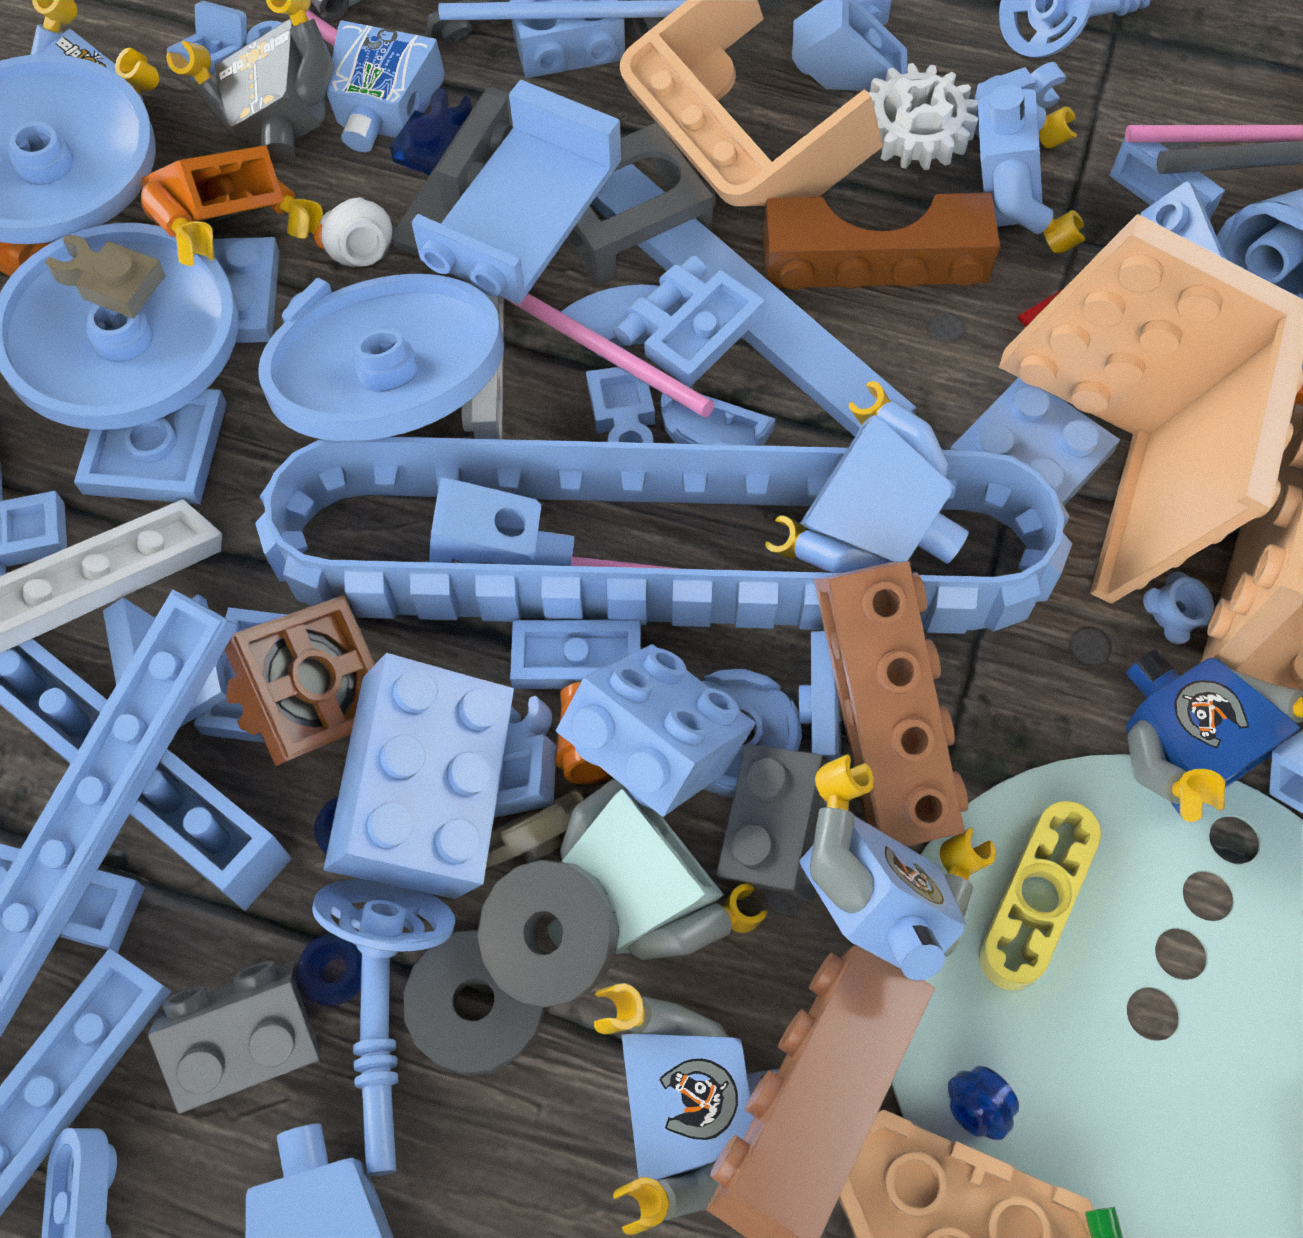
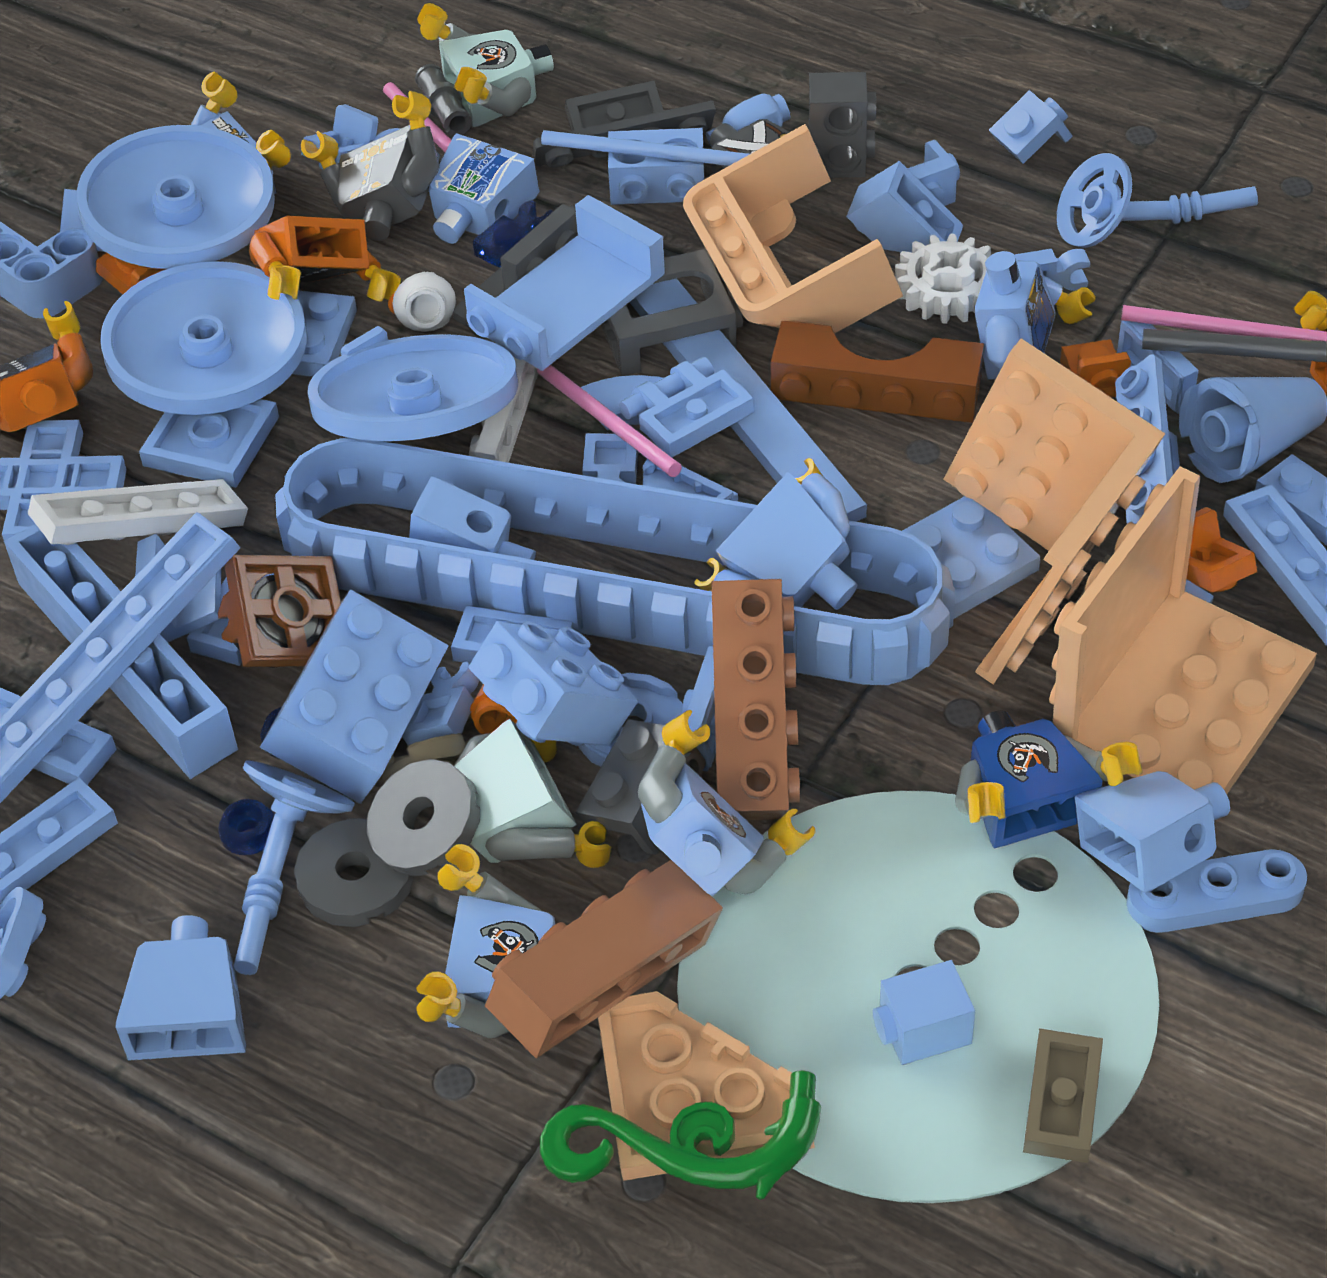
camera: 15 degrees right, 15 degrees down
(112, 278) = (211, 300): dark tan plate -> none
(233, 1035) = (157, 858): bracket -> none
(983, 1102) = (741, 1005): clear blue plate -> none
(1077, 859) = (839, 900): light yellow beam -> none
(1101, 200) = (1096, 363): none -> orange bracket
(1180, 606) = (1030, 685): light blue plate -> none
(1193, 1070) = (924, 1012): none -> light blue brick

